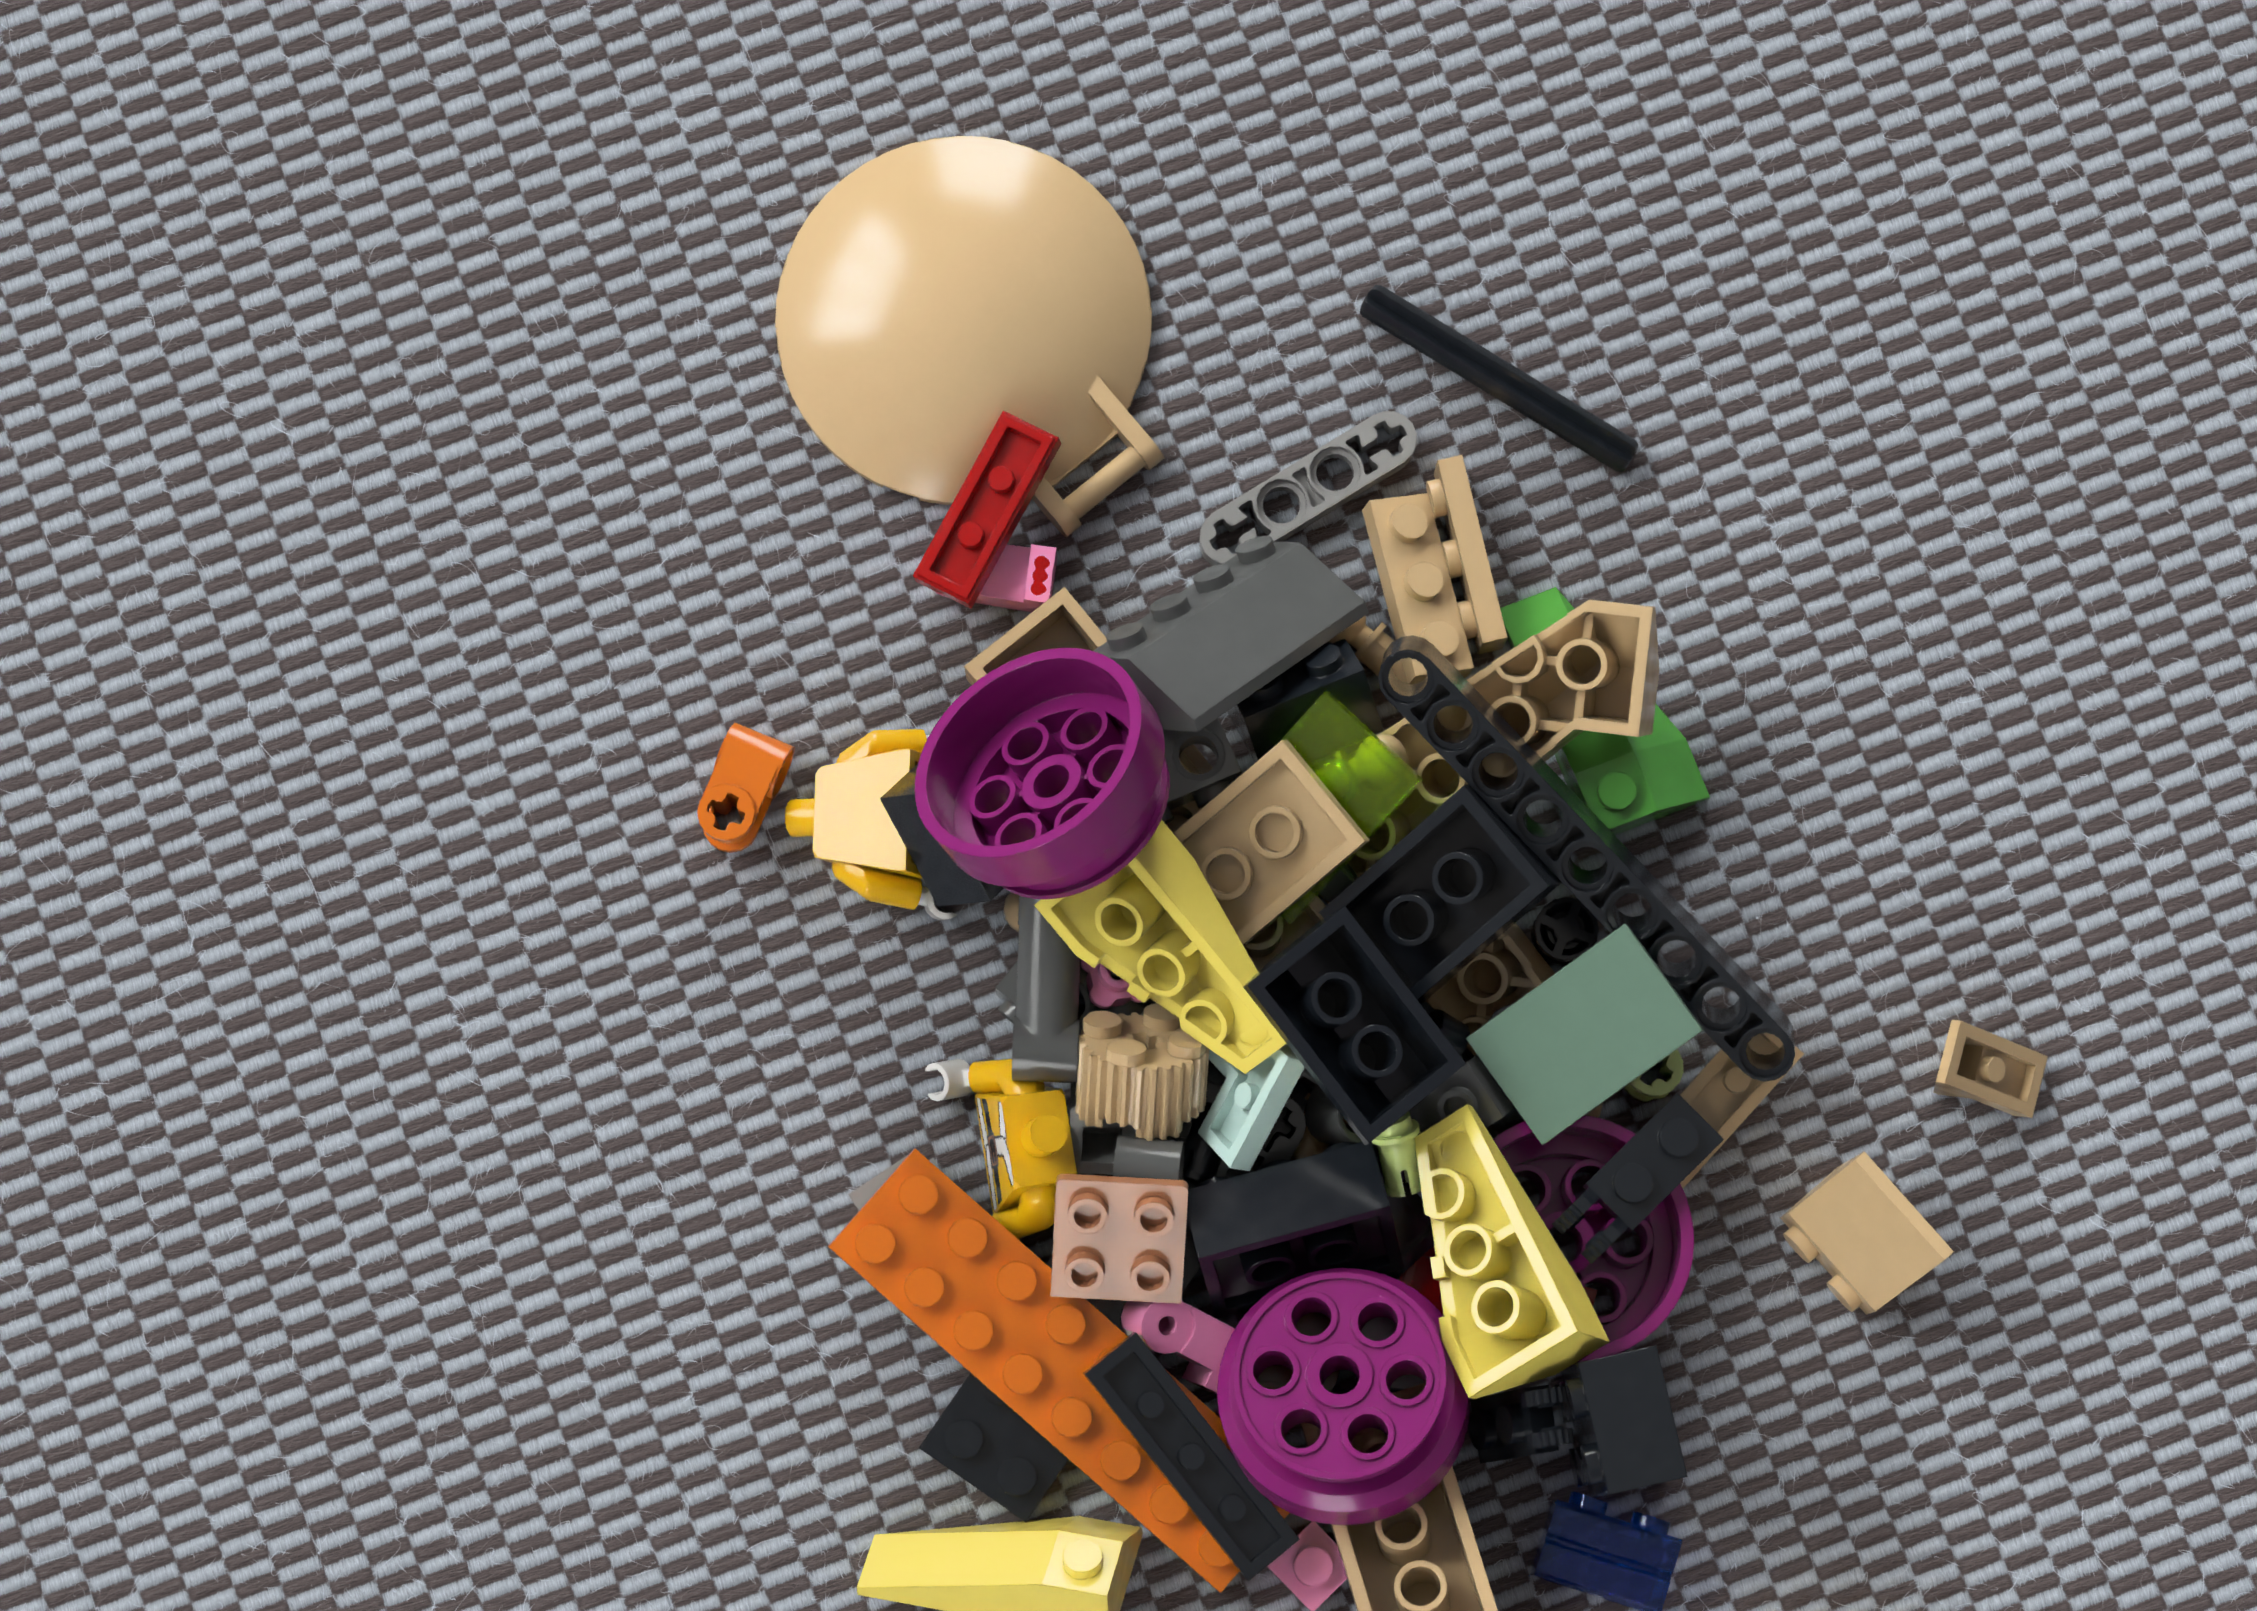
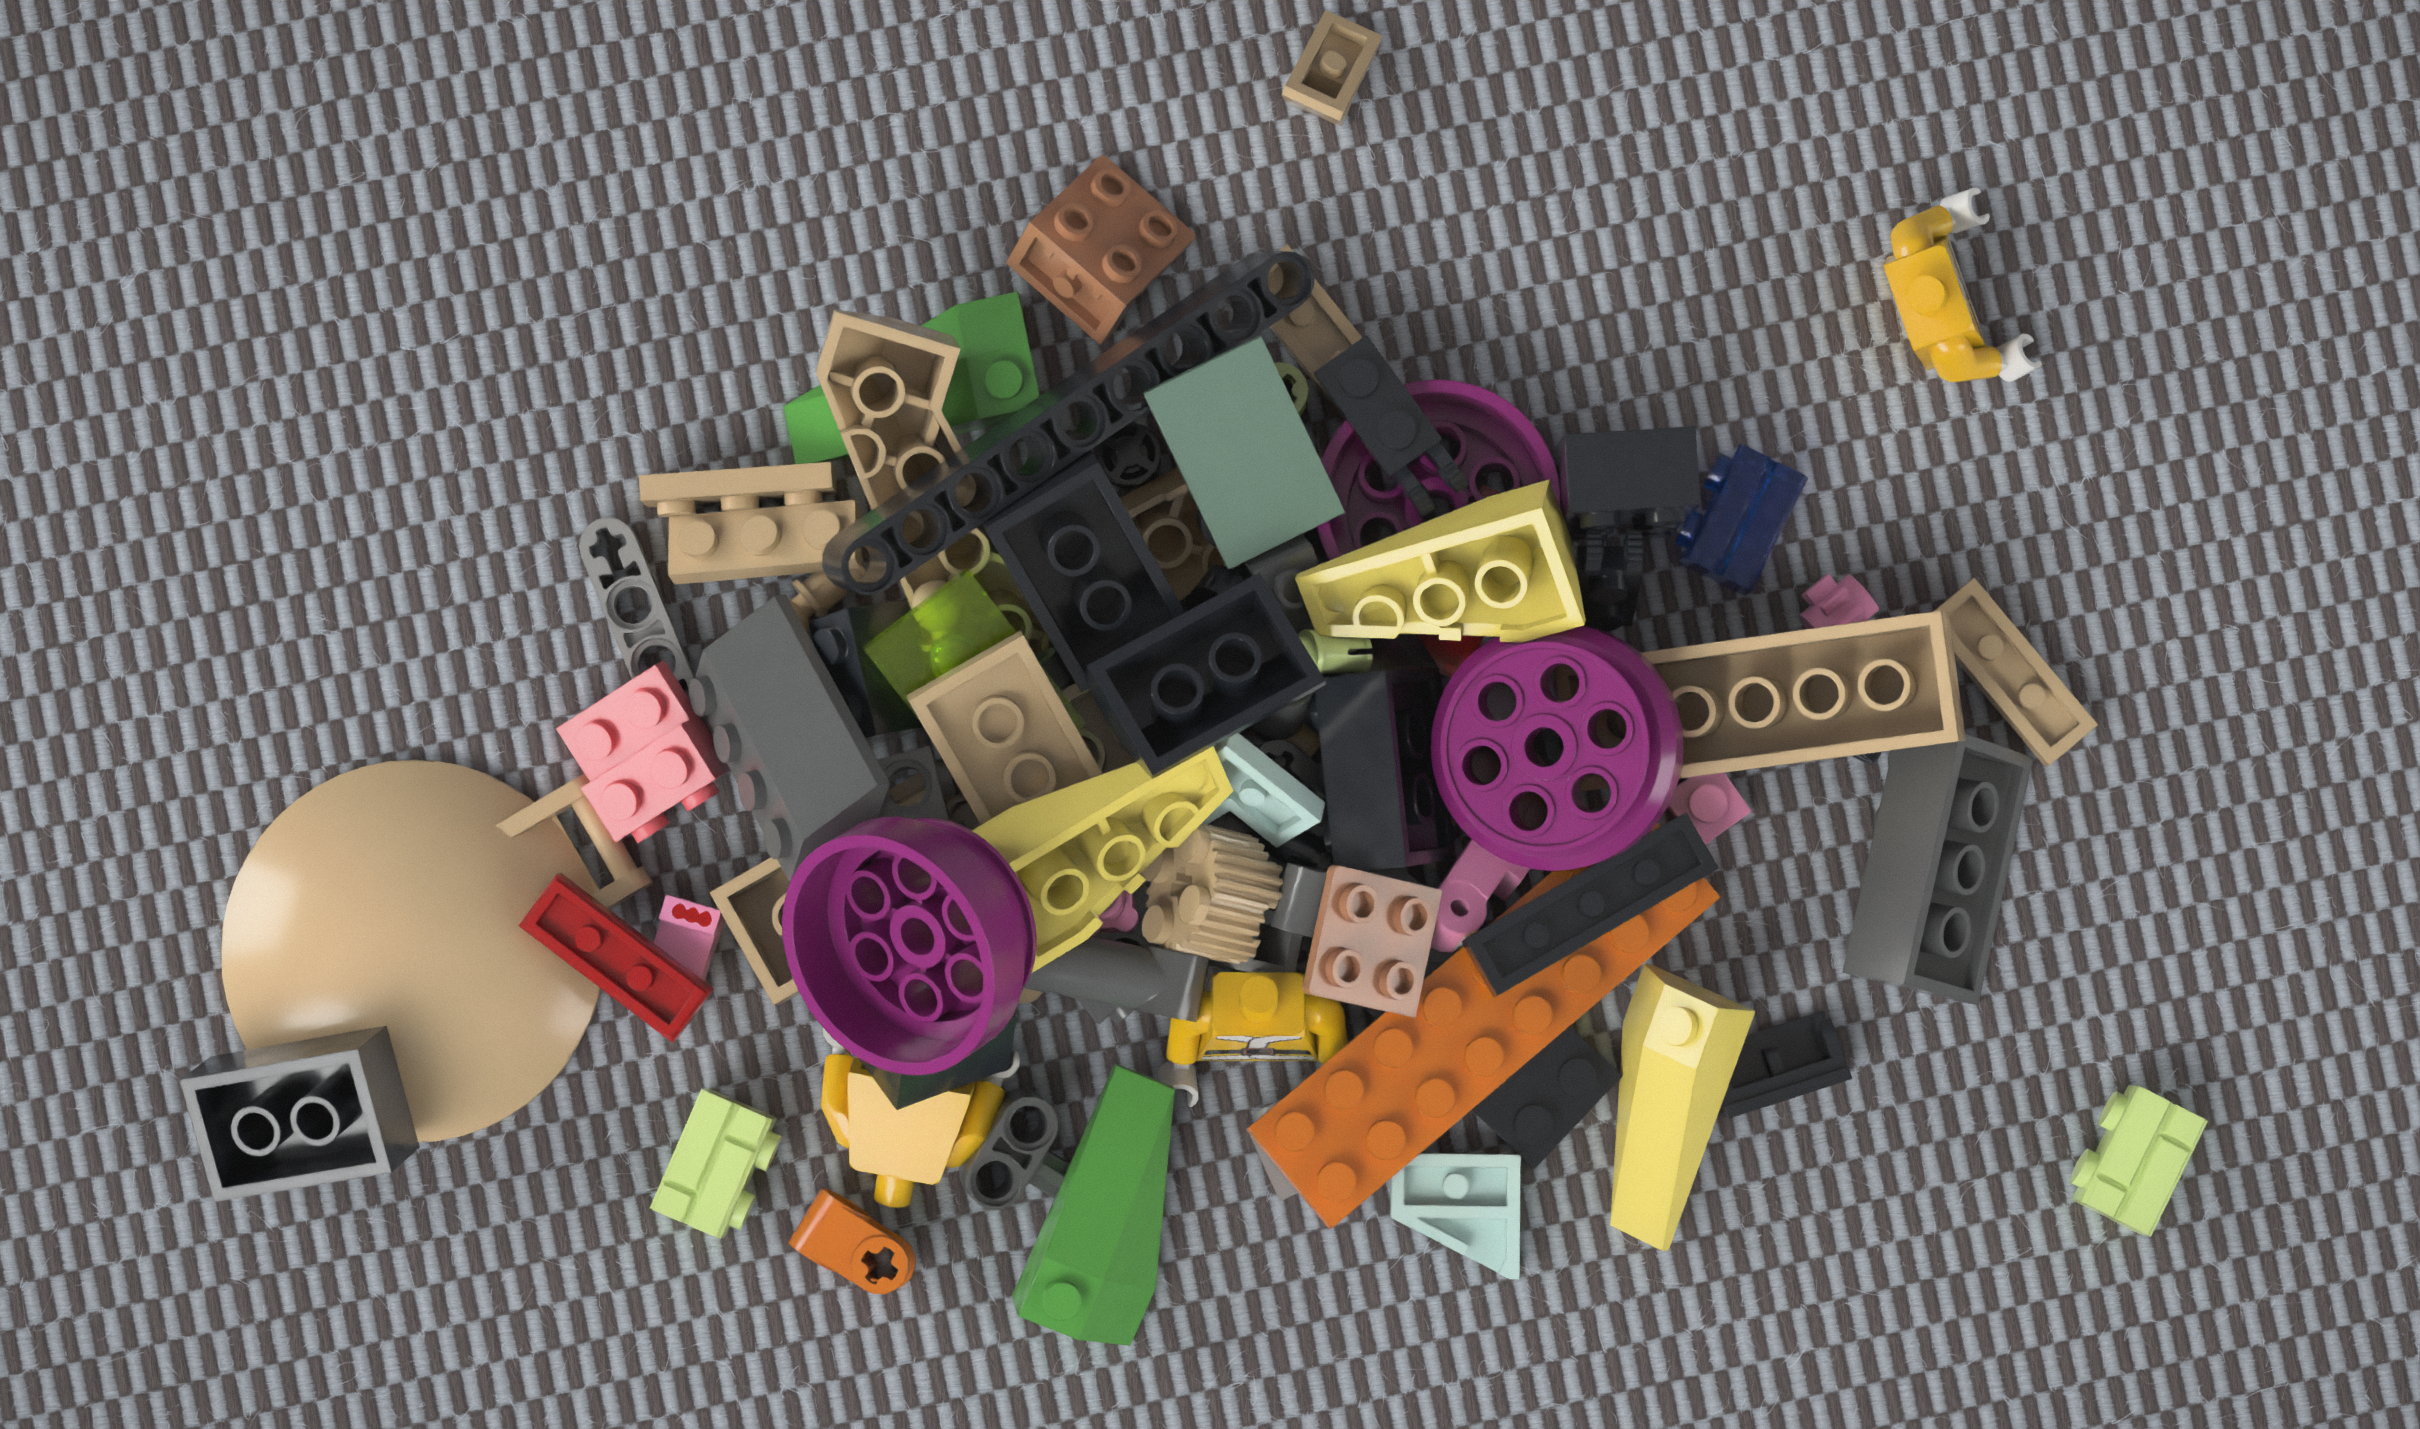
camera: 80 degrees left, 5 degrees up
(788, 234) = (300, 1114): none -> black brick
(789, 1027) = (1103, 1232): none -> bright green wedge
(801, 641) = (715, 1164): none -> yellowish green brick
(851, 940) = (1025, 1157): none -> dark grey beam
(873, 1381) = (1464, 1204): none -> light aqua wing
(1189, 504) = (643, 754): none -> plate
(1499, 378) = (563, 426): black axle -> none
(1768, 869) = (1099, 247): none -> nougat bracket
(1863, 1235) = (1476, 217): tan slope -> none

